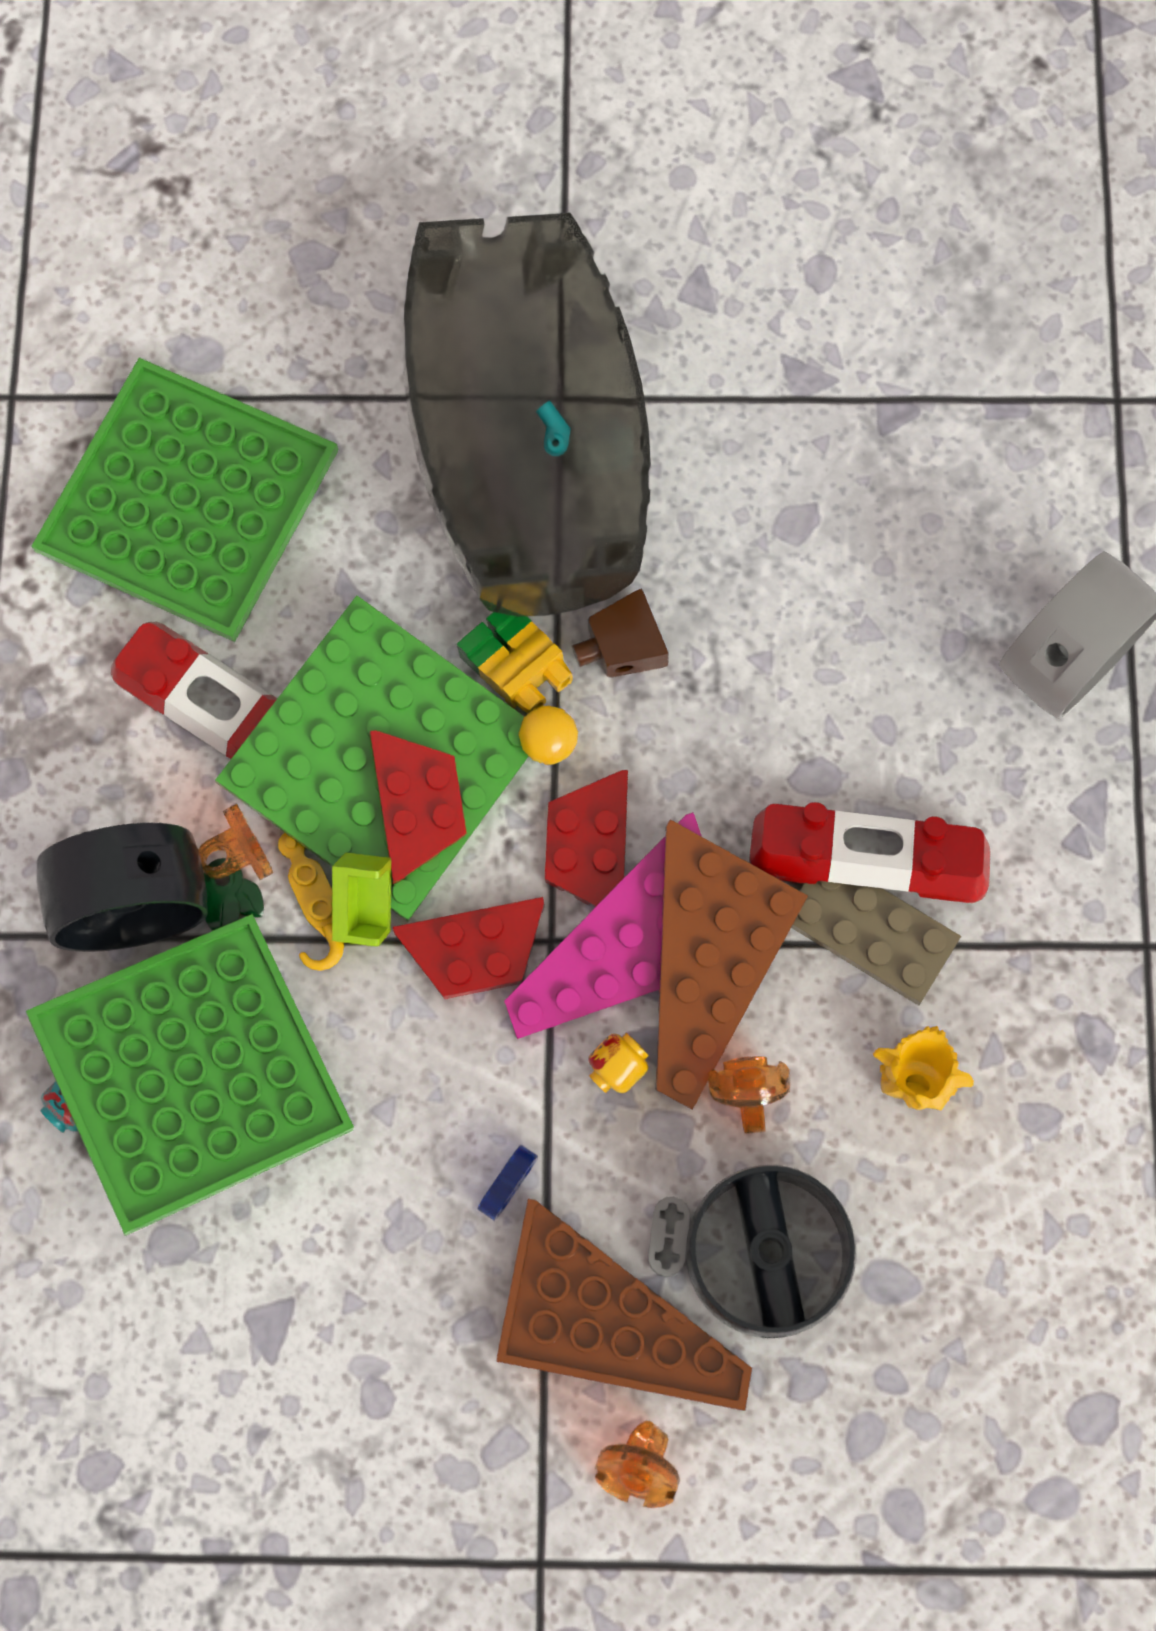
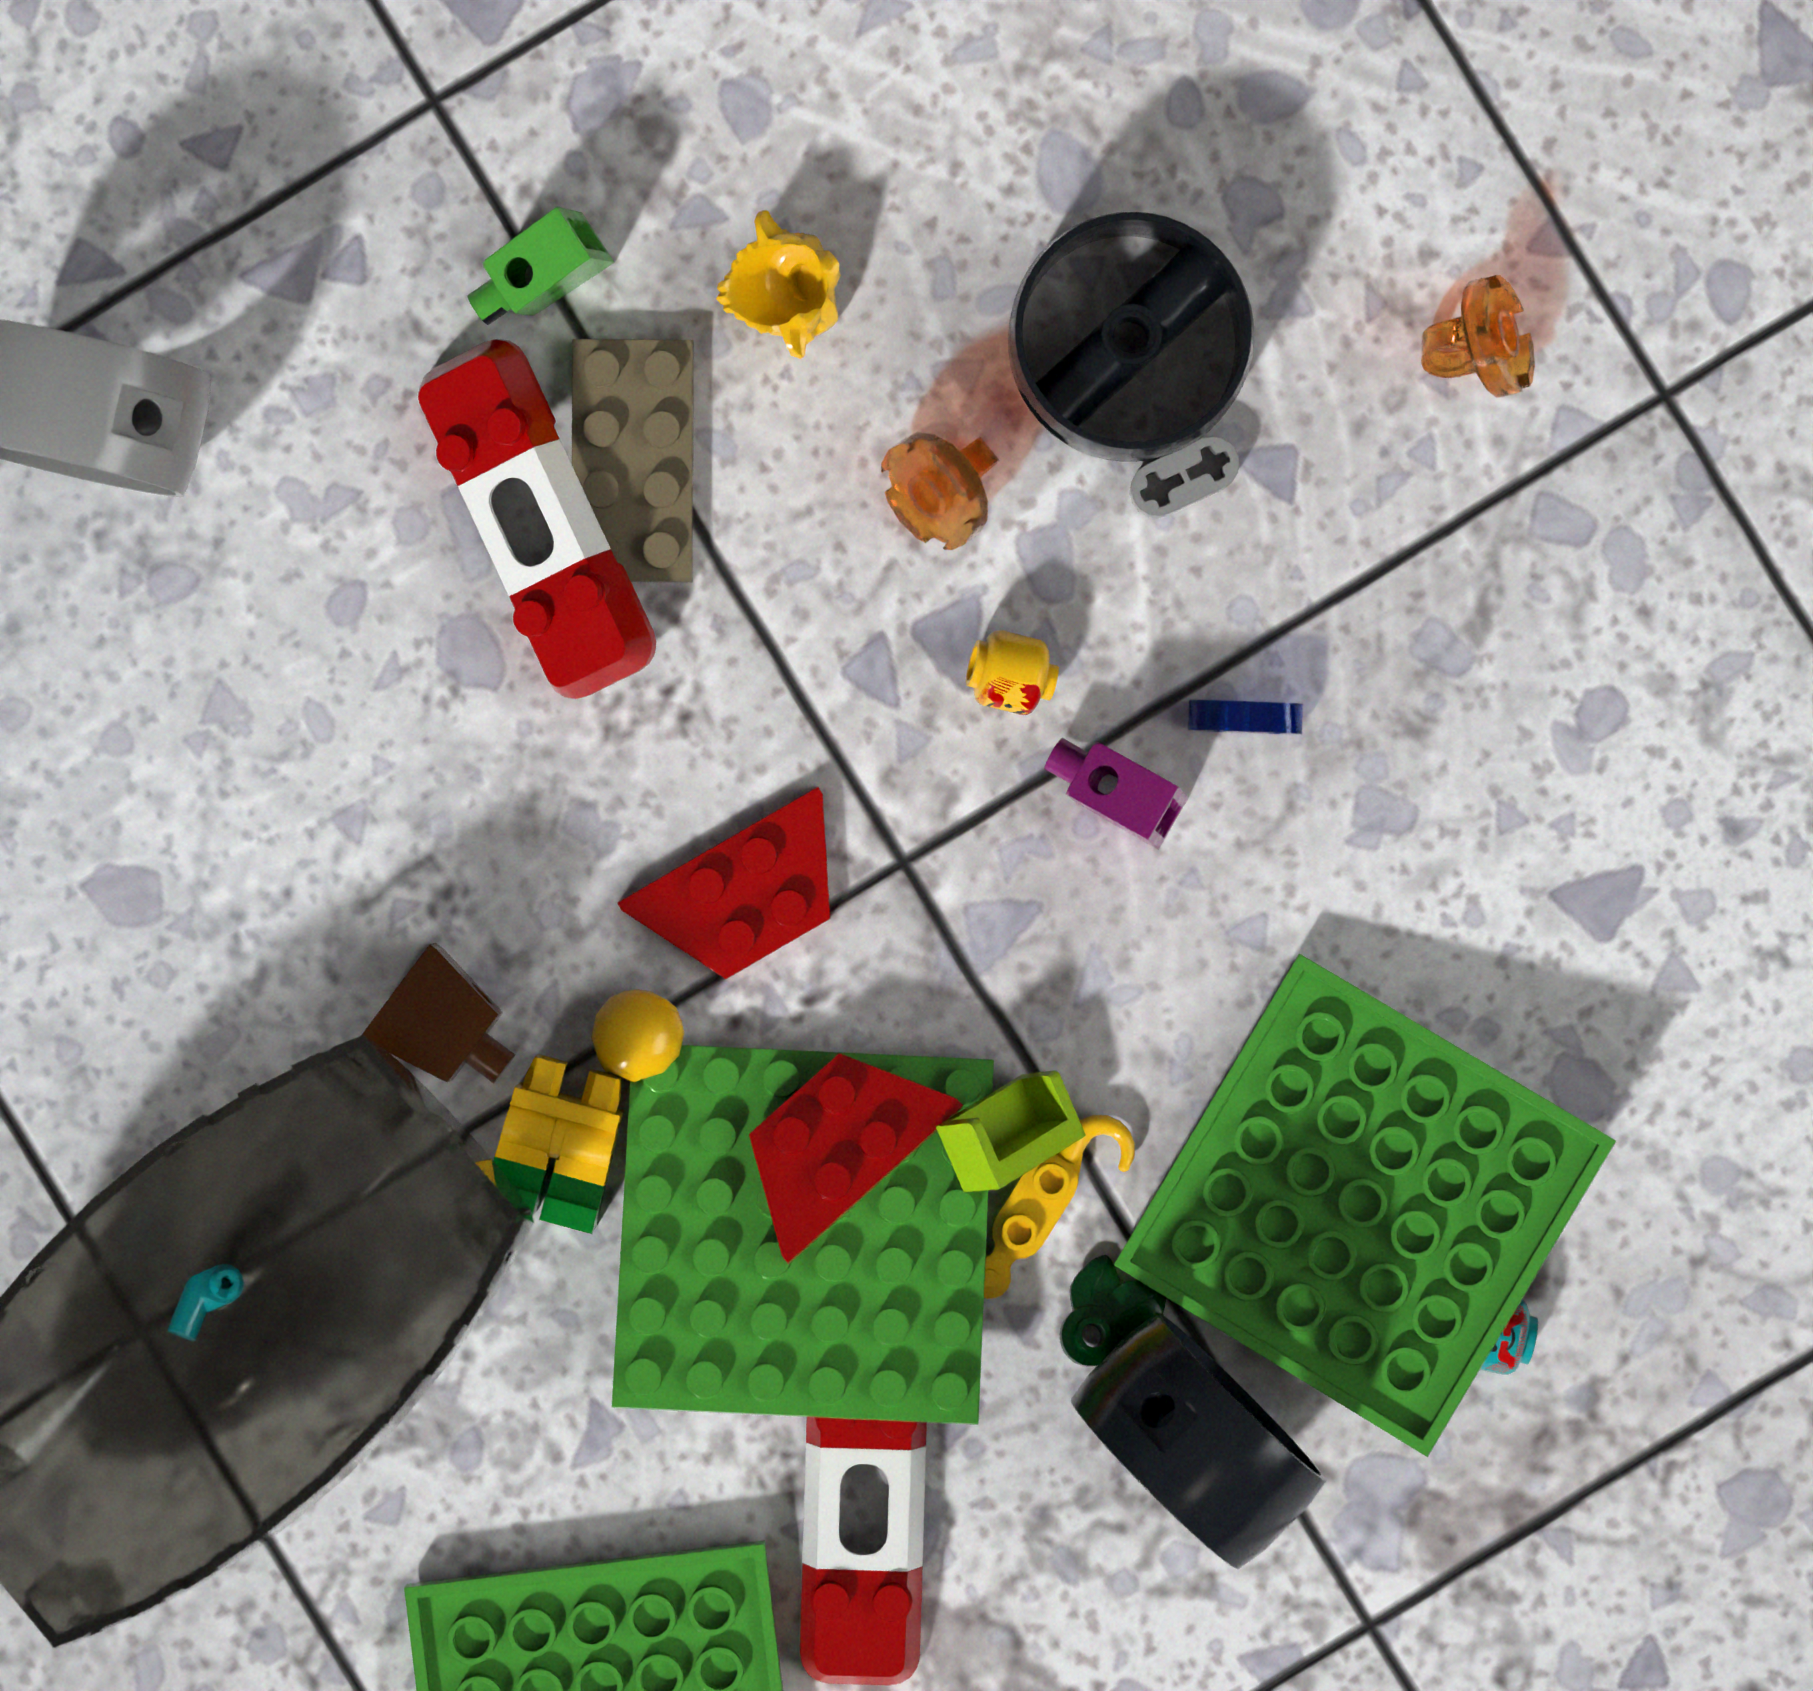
camera: 130 degrees left, 15 degrees up
(240, 846) = (1039, 1335): clear orange tile -> none
(474, 948) = (975, 952): red wing -> none
(497, 1089) = (1139, 803): none -> magenta torso
(596, 1322) = (1342, 500): dark orange wing -> none
(606, 955) = (825, 742): dark pink wing -> none
(717, 944) = (782, 638): dark orange wing -> none
(1014, 942) = (562, 257): none -> bright green torso

